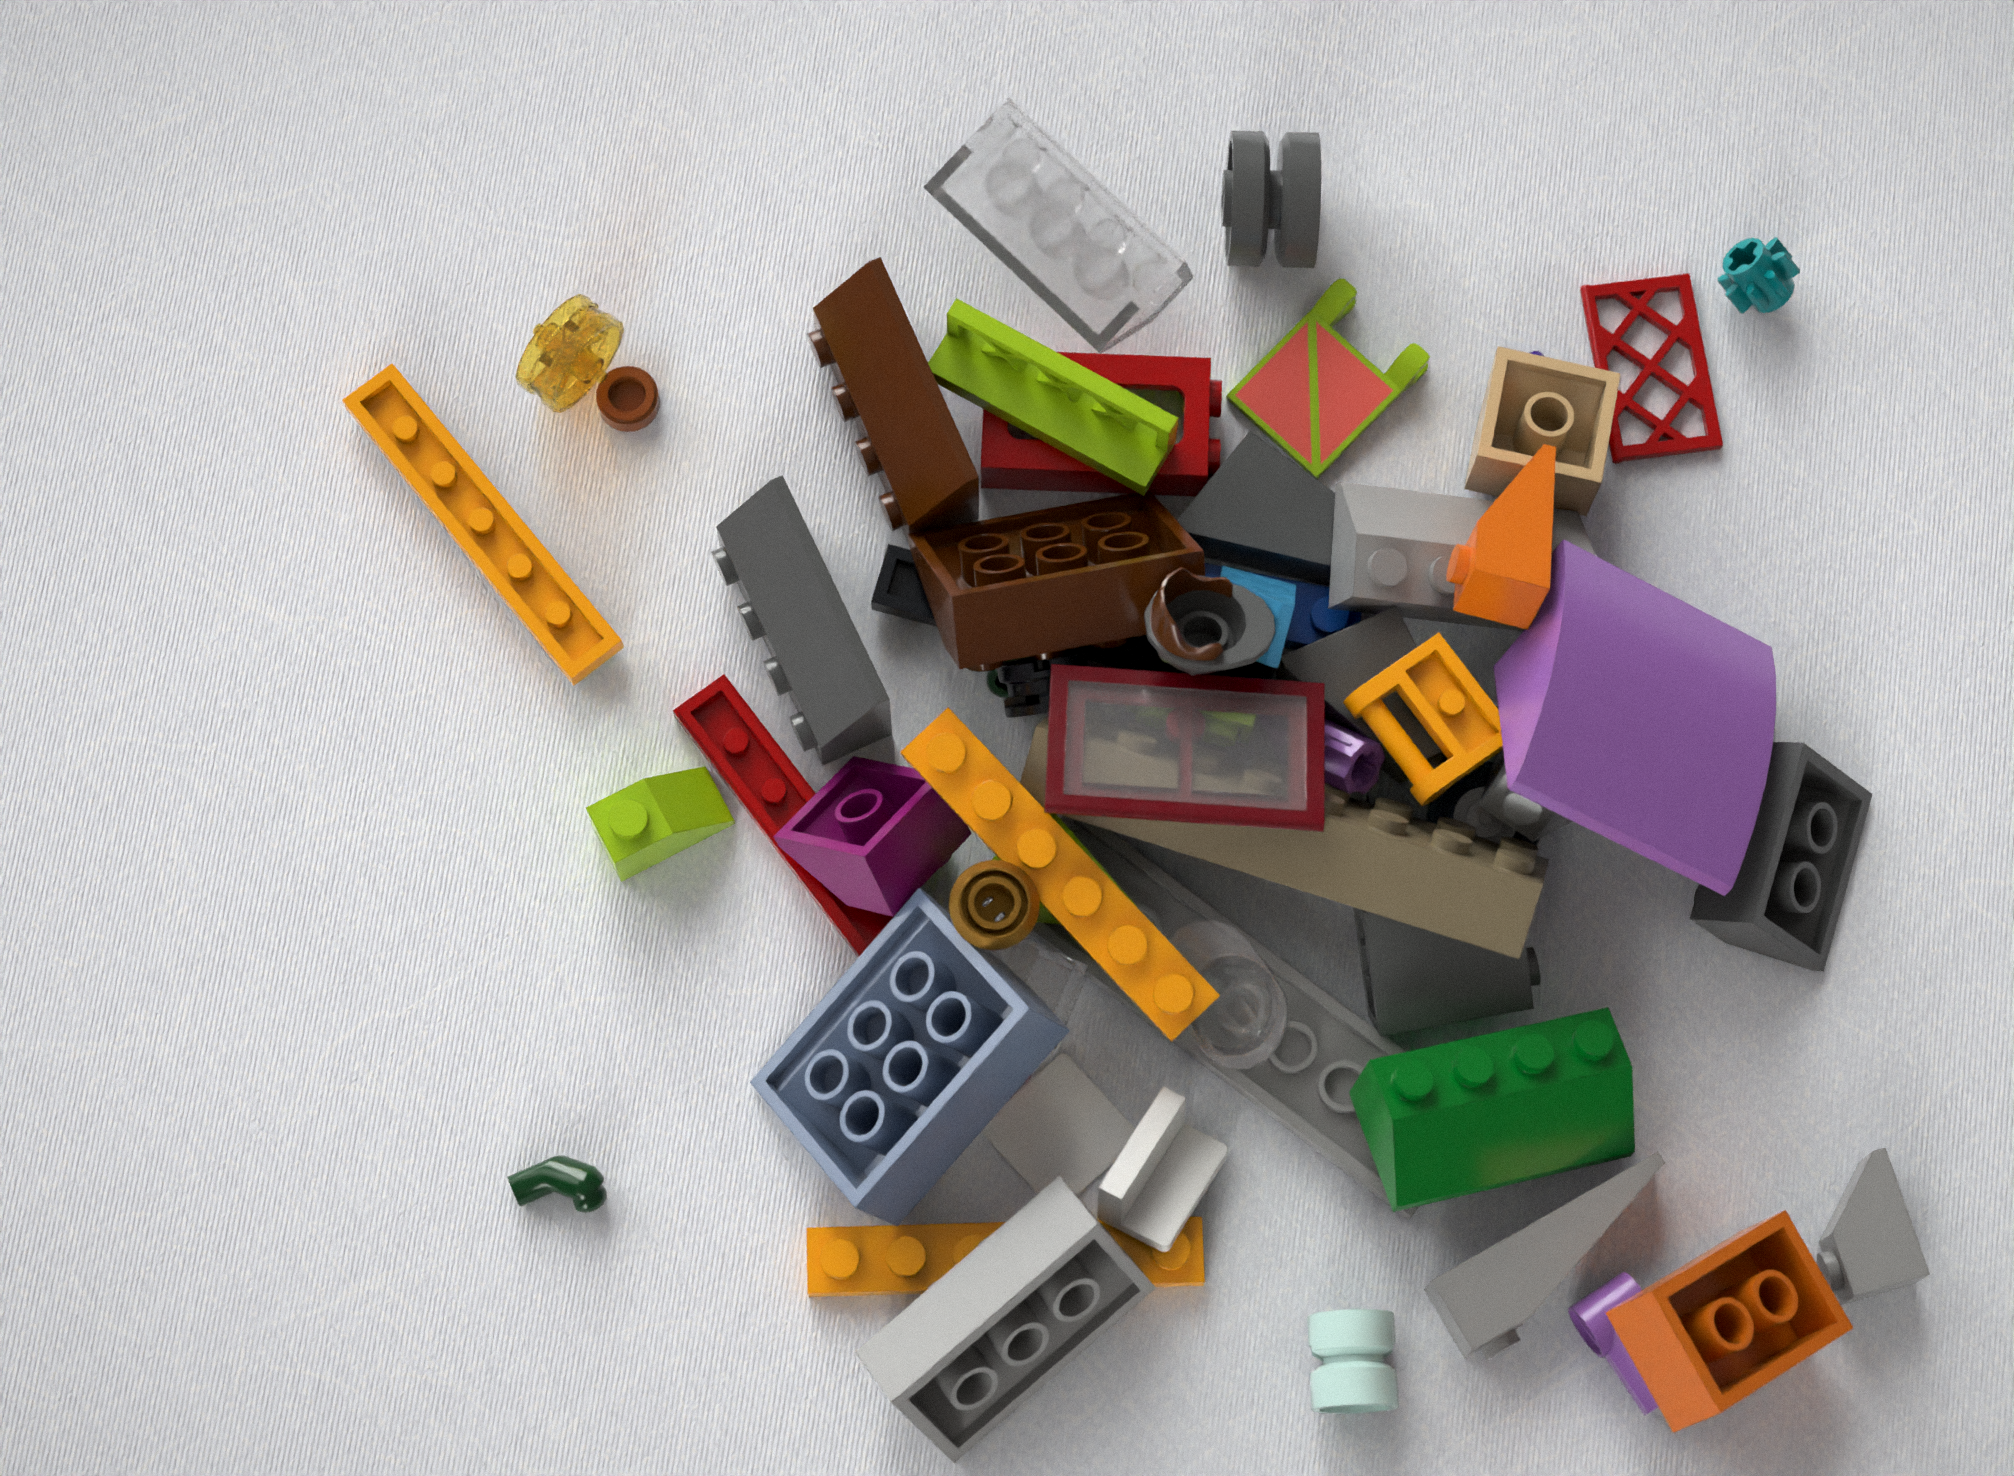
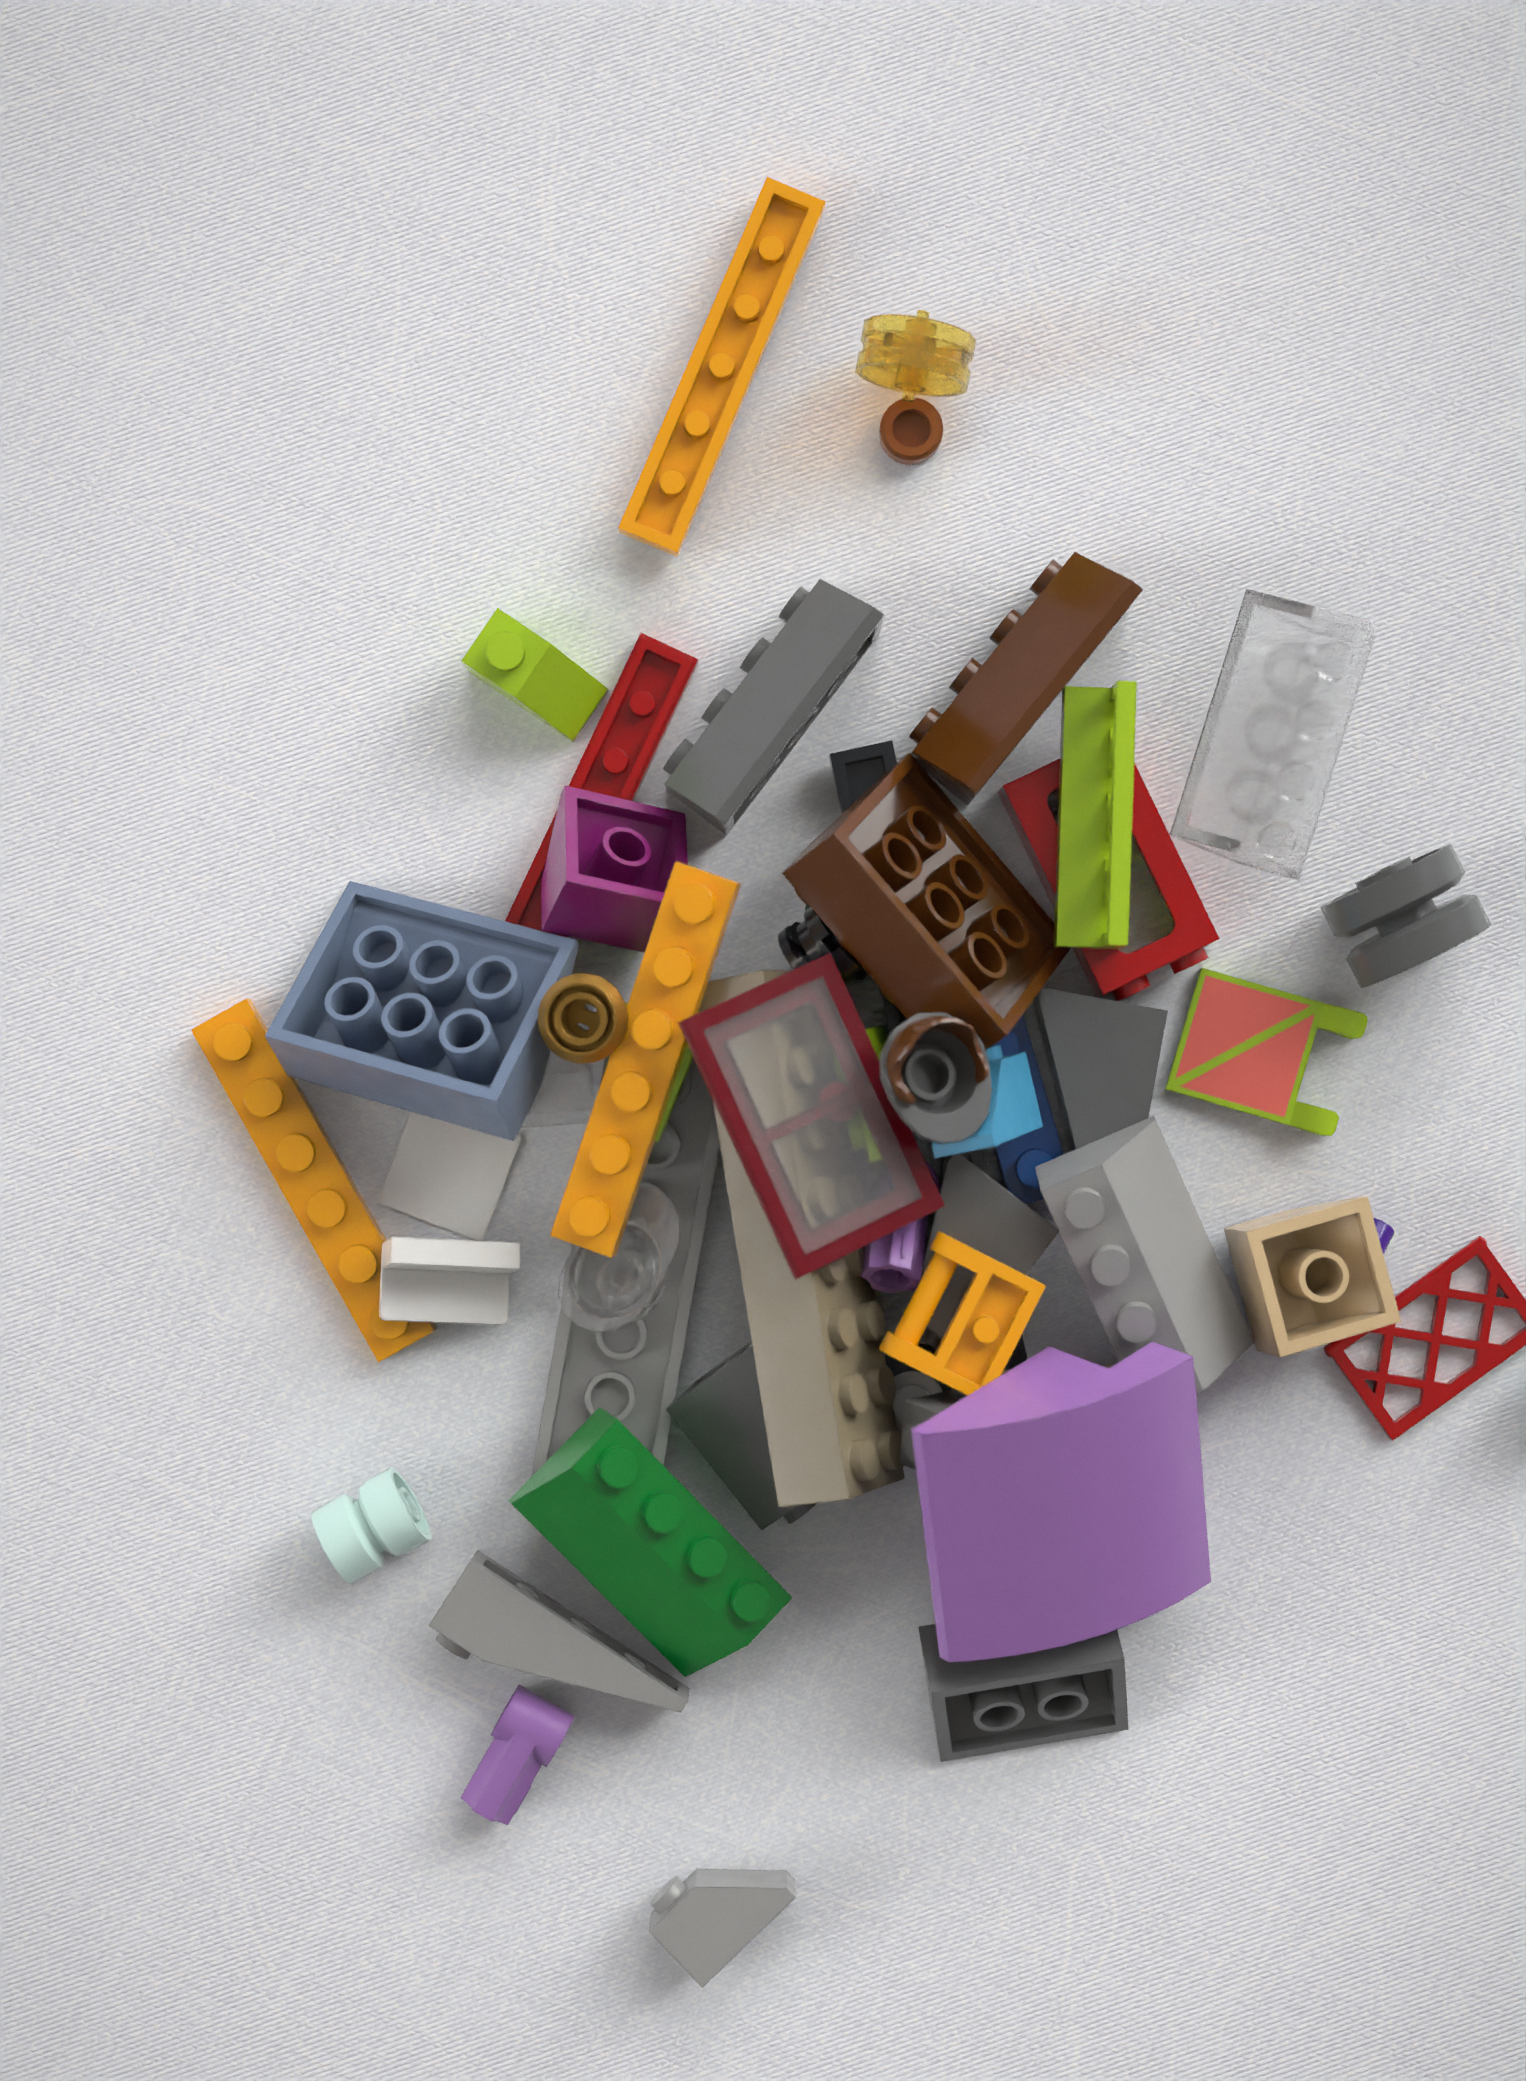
camera: 65 degrees right, 15 degrees up
(563, 1176) = (181, 769): dark green arm -> none
(1004, 1320) = (246, 1210): light grey slope -> none
(1508, 556) = (1146, 1315): orange slope -> none
(1729, 1321) = (564, 1837): orange brick -> none

